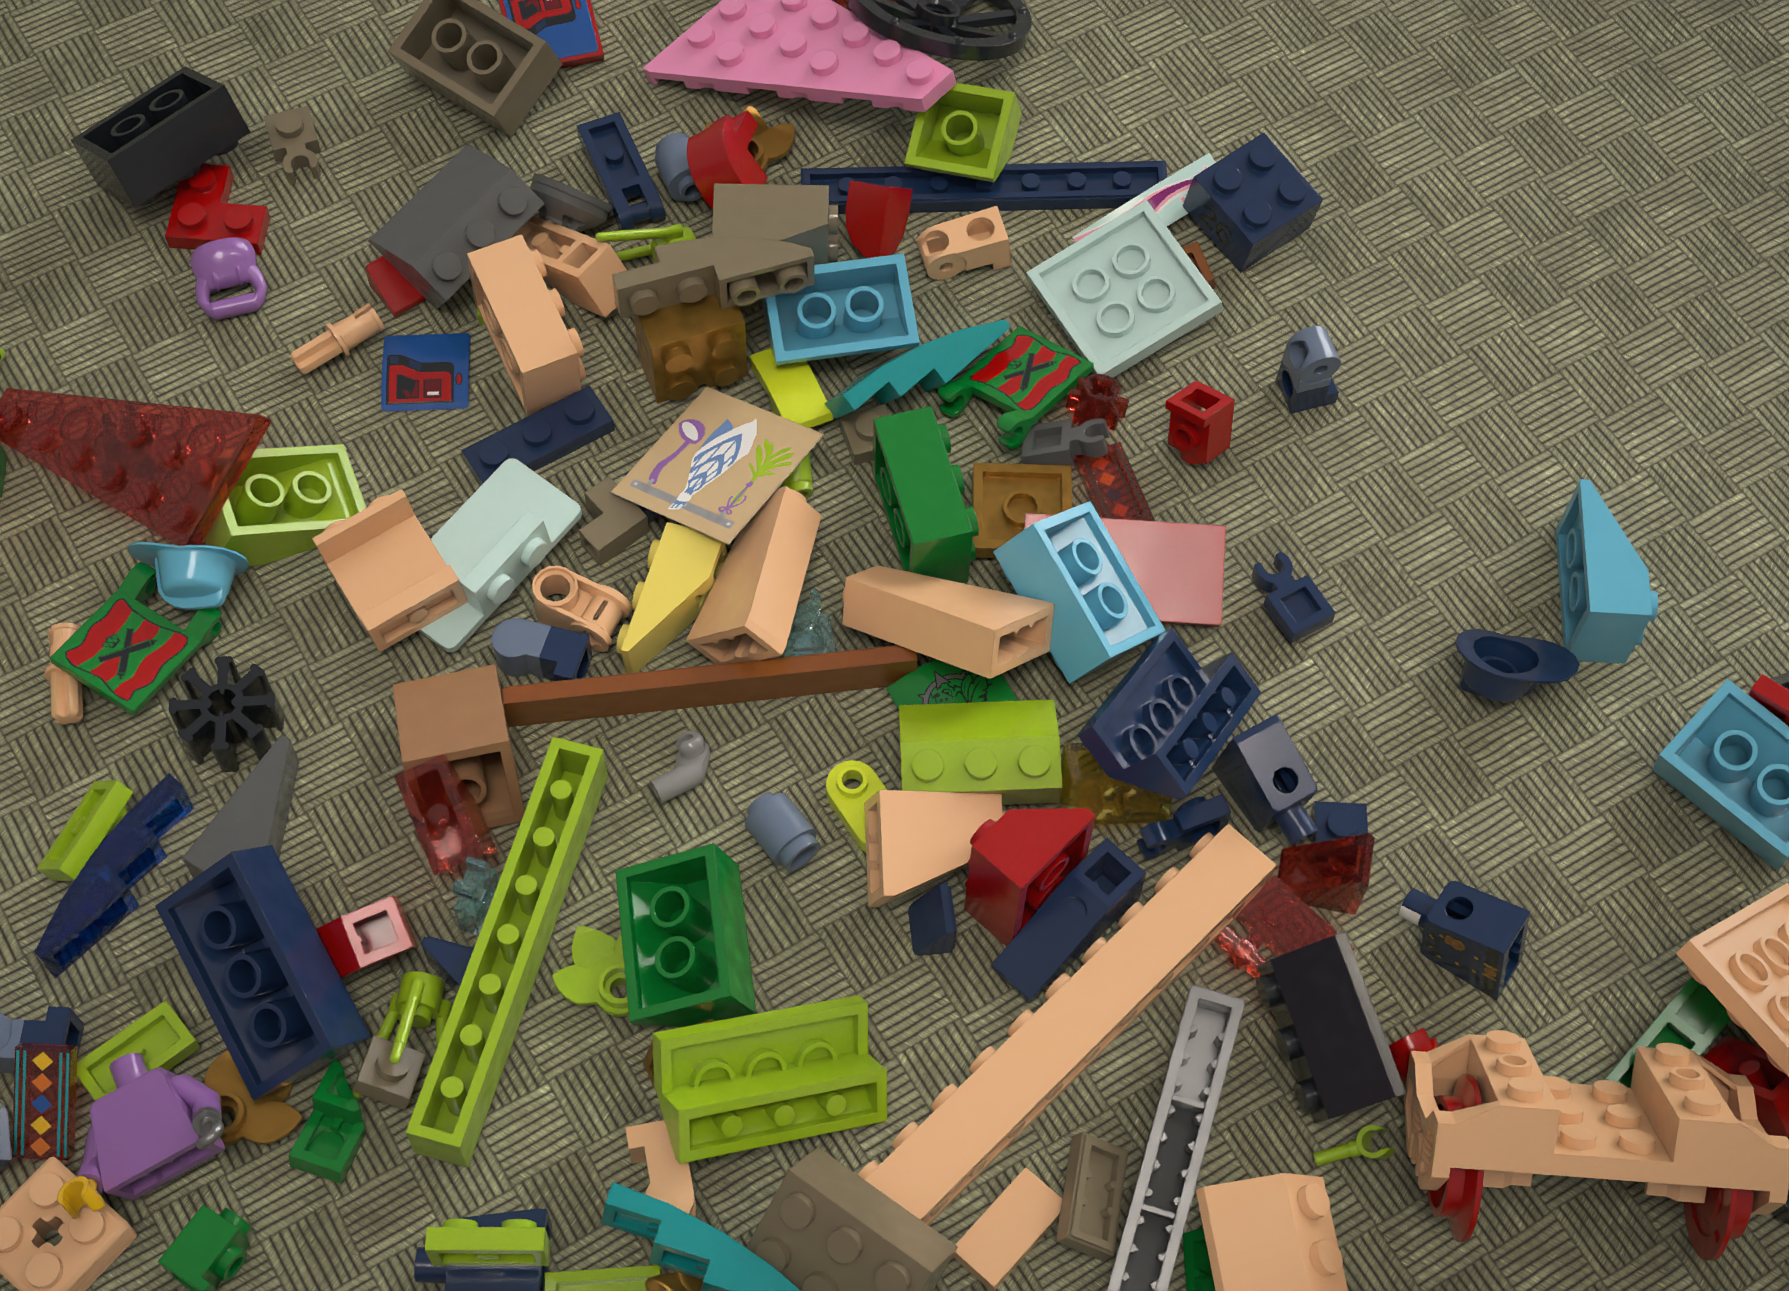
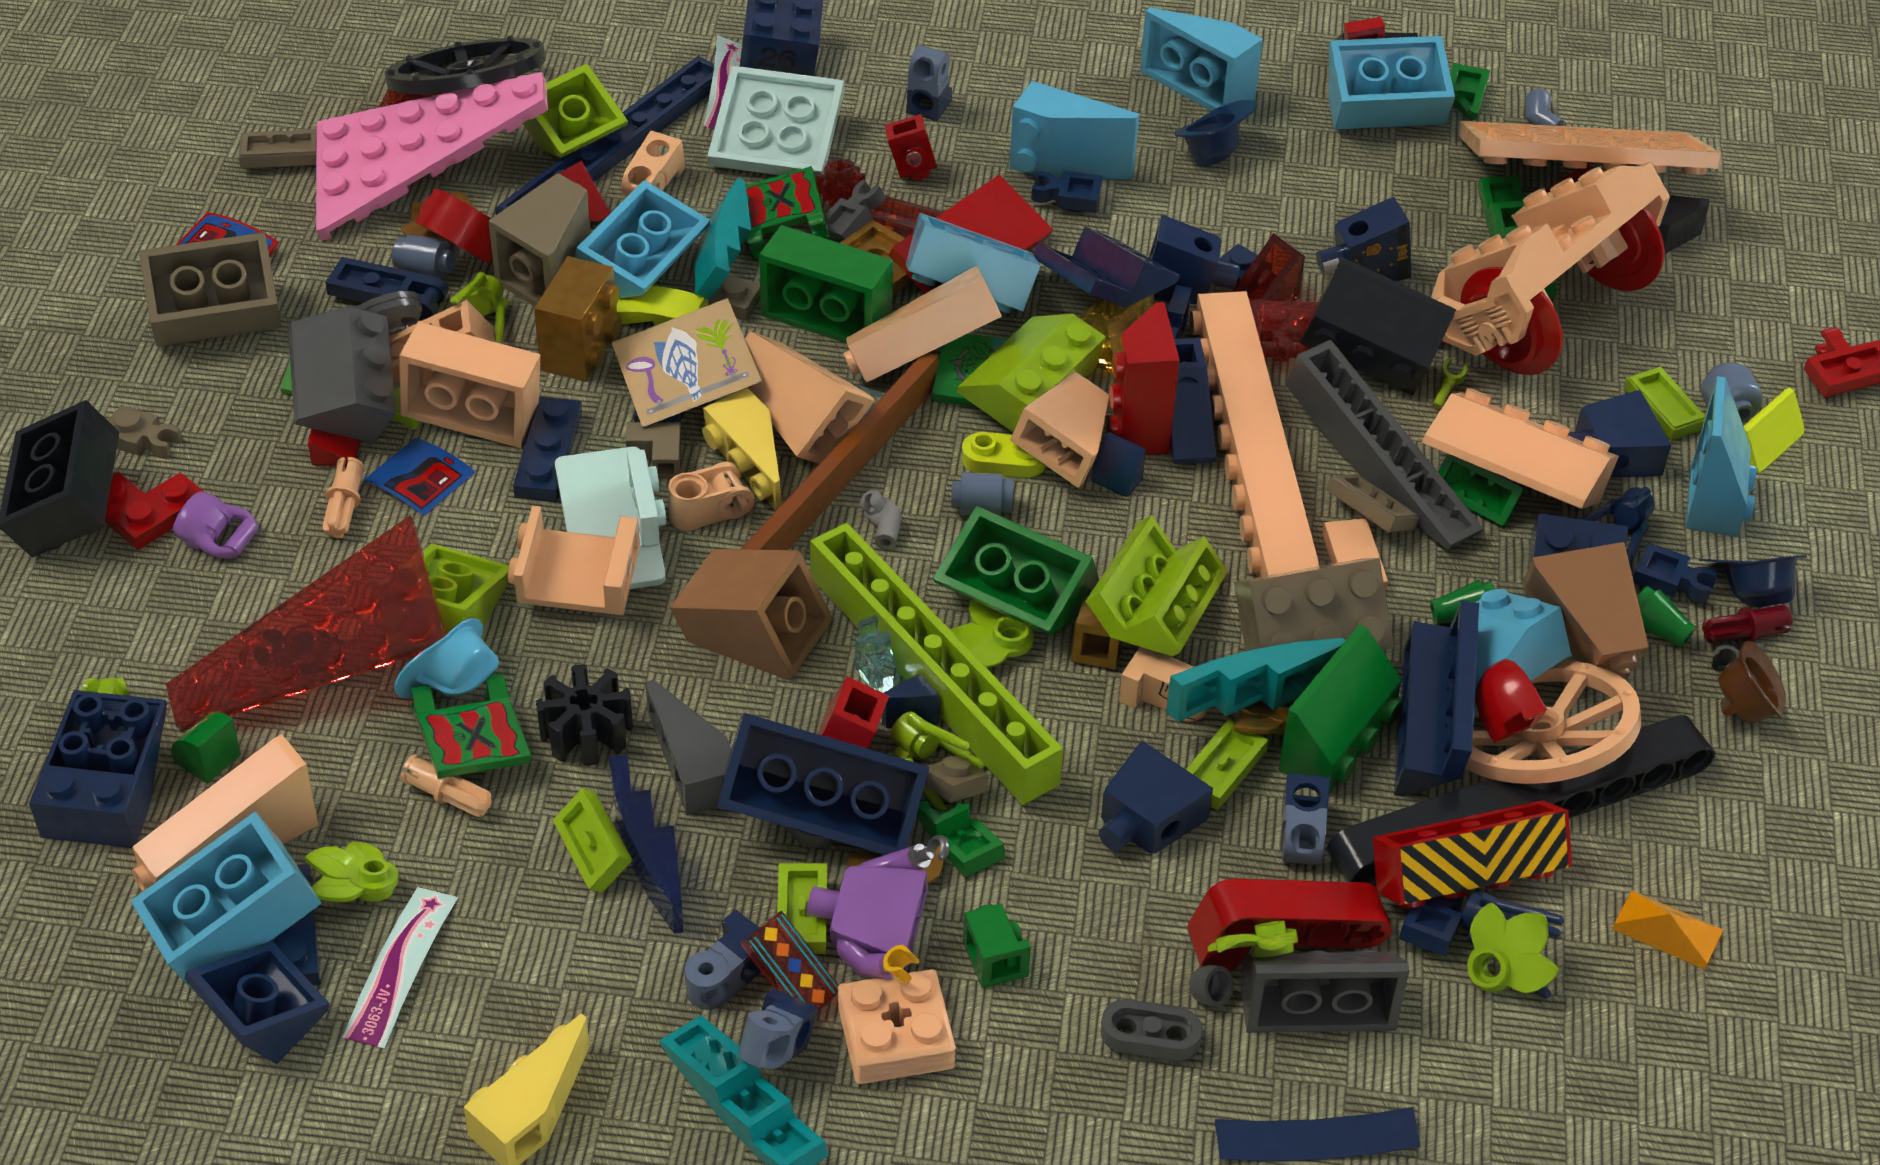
camera: 50 degrees left, 15 degrees down
(445, 816) = (808, 631): clear red slope -> none
(465, 1244) = (1147, 771): lime plate -> none
(540, 650) = (721, 528): leg -> none
(729, 267) = (571, 244): dark tan slope -> none
(1347, 542) = (1071, 134): none -> medium azure slope

